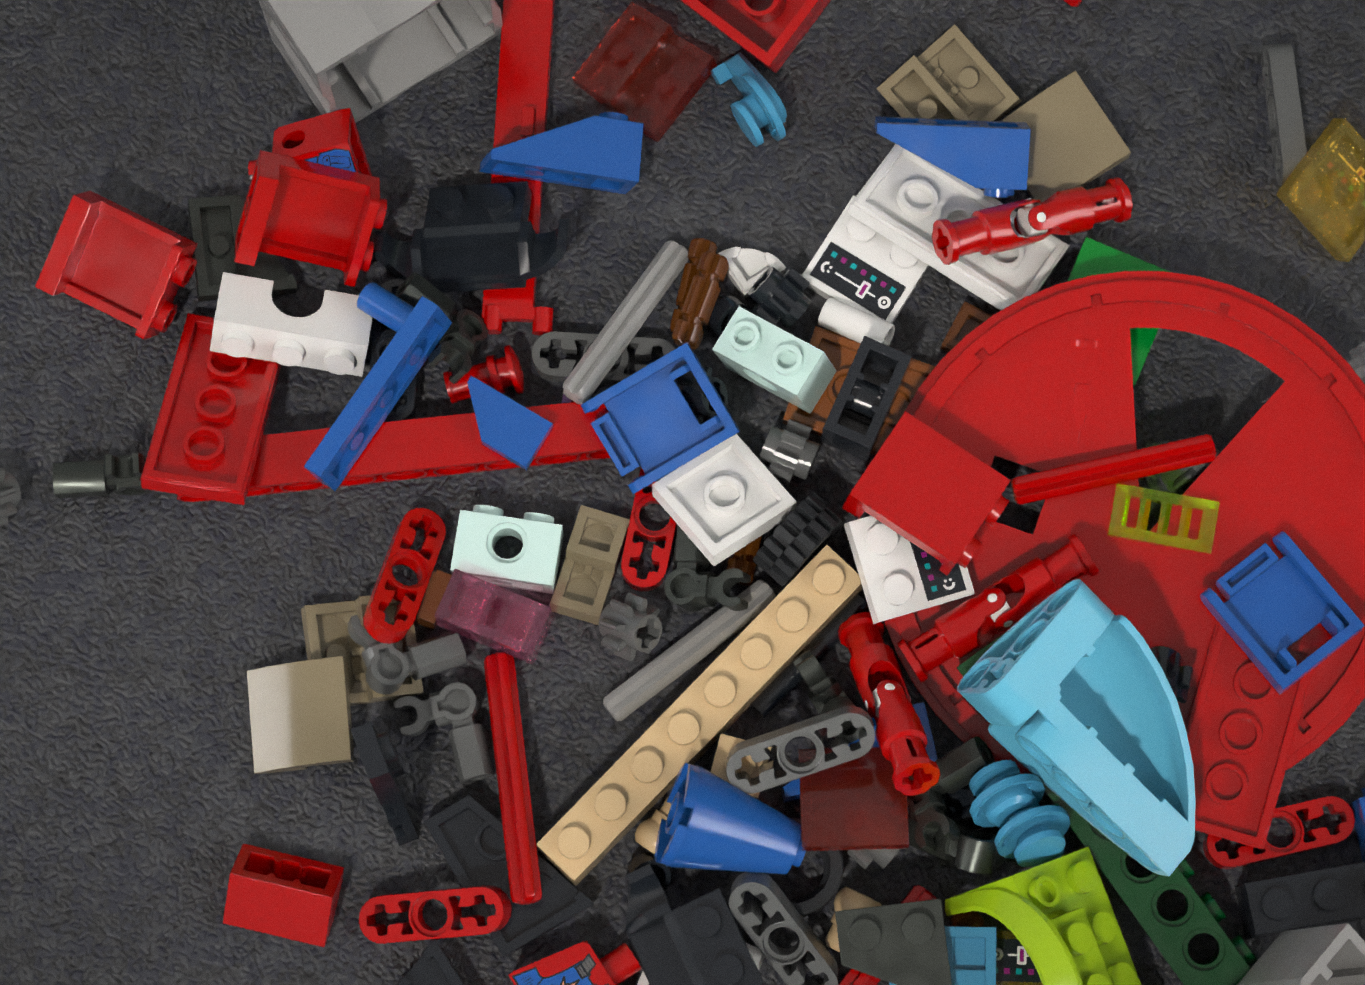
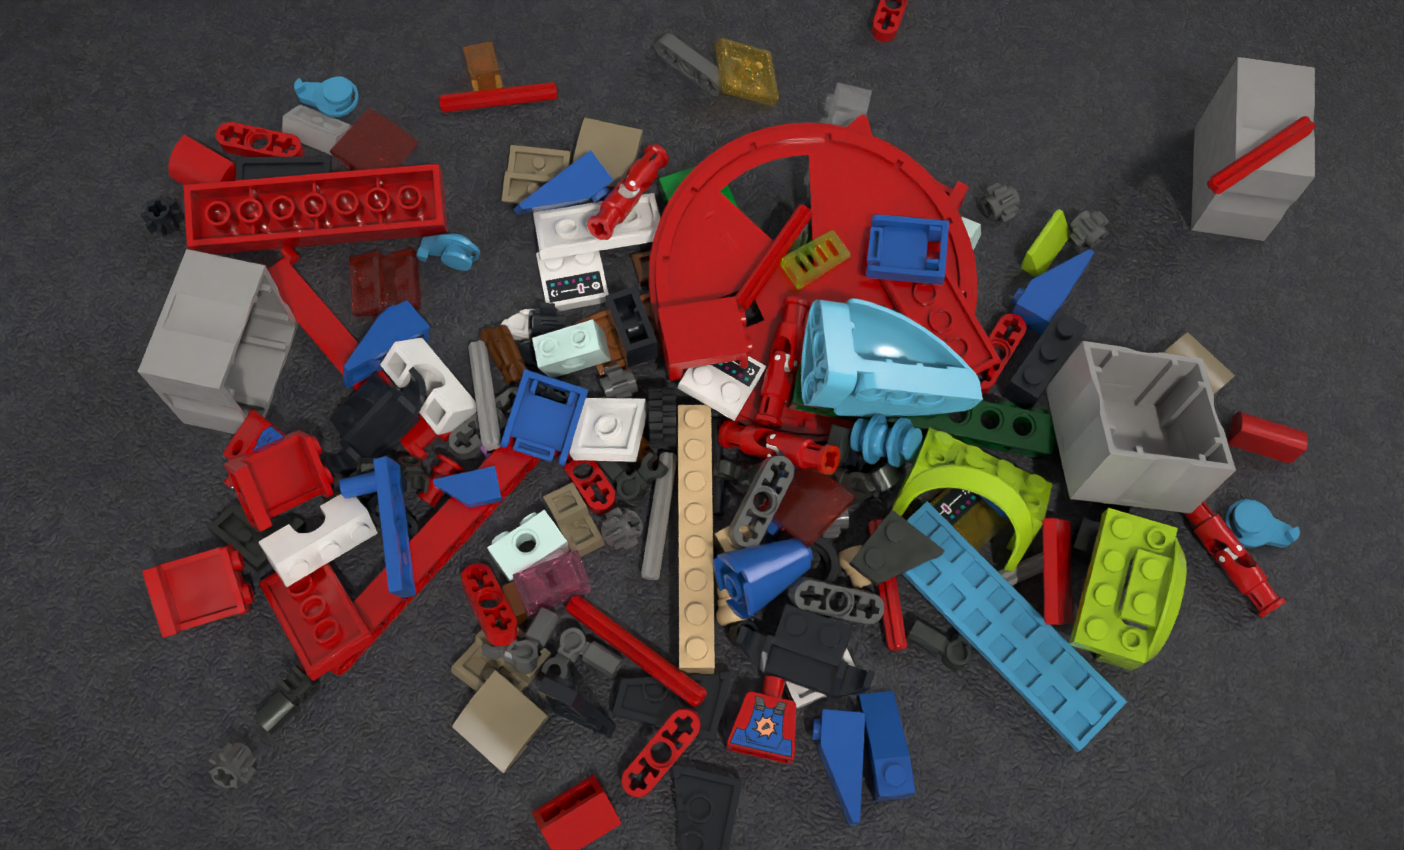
camera: 45 degrees left, 10 degrees down
(580, 292) = (447, 399): none -> white arch
(854, 323) = (590, 305): white axle -> none

